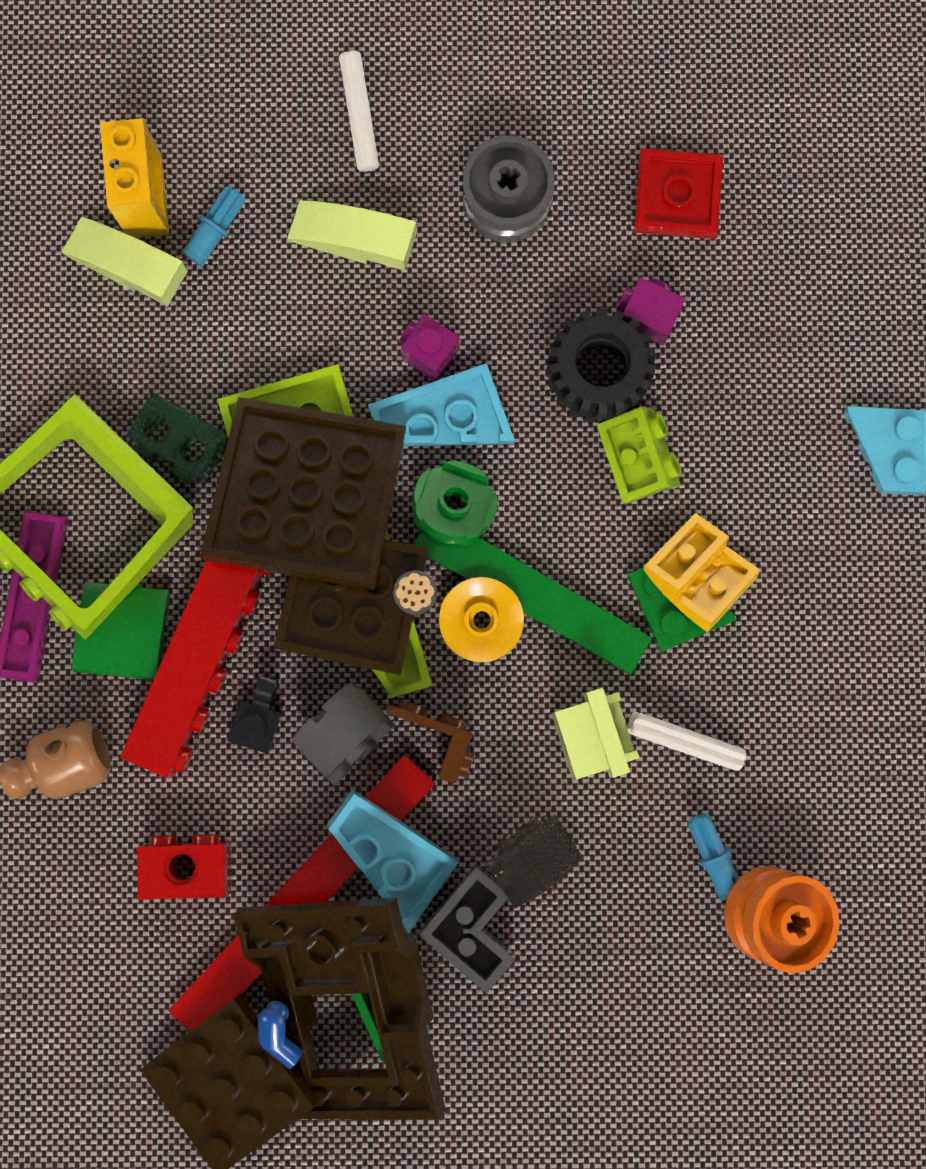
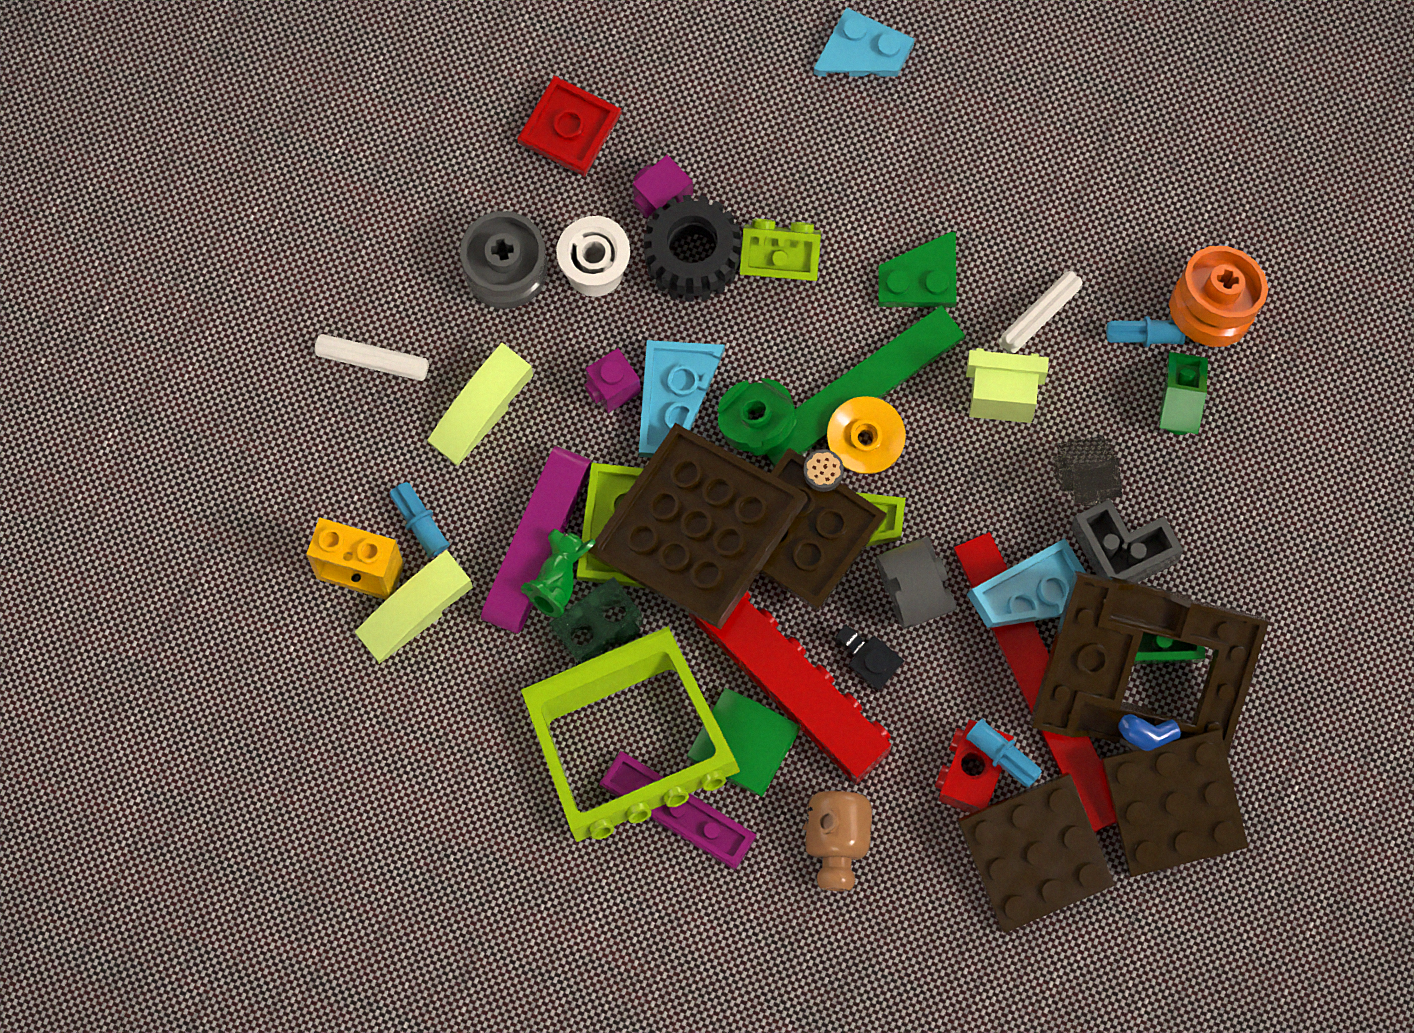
camera: 65 degrees left, 10 degrees down
(120, 965) = (1035, 852): none -> dark brown plate
(197, 896) = (1004, 753): none -> dark azure axle
(198, 378) = (555, 580): none -> green animal
(239, 345) = (547, 509): none -> magenta beam
(458, 758) = (970, 494): reddish brown bracket -> none
(546, 270) = (593, 255): none -> white piece
(665, 922) = (1183, 393): none -> green slope
(701, 572) = (903, 242): yellow slope -> none

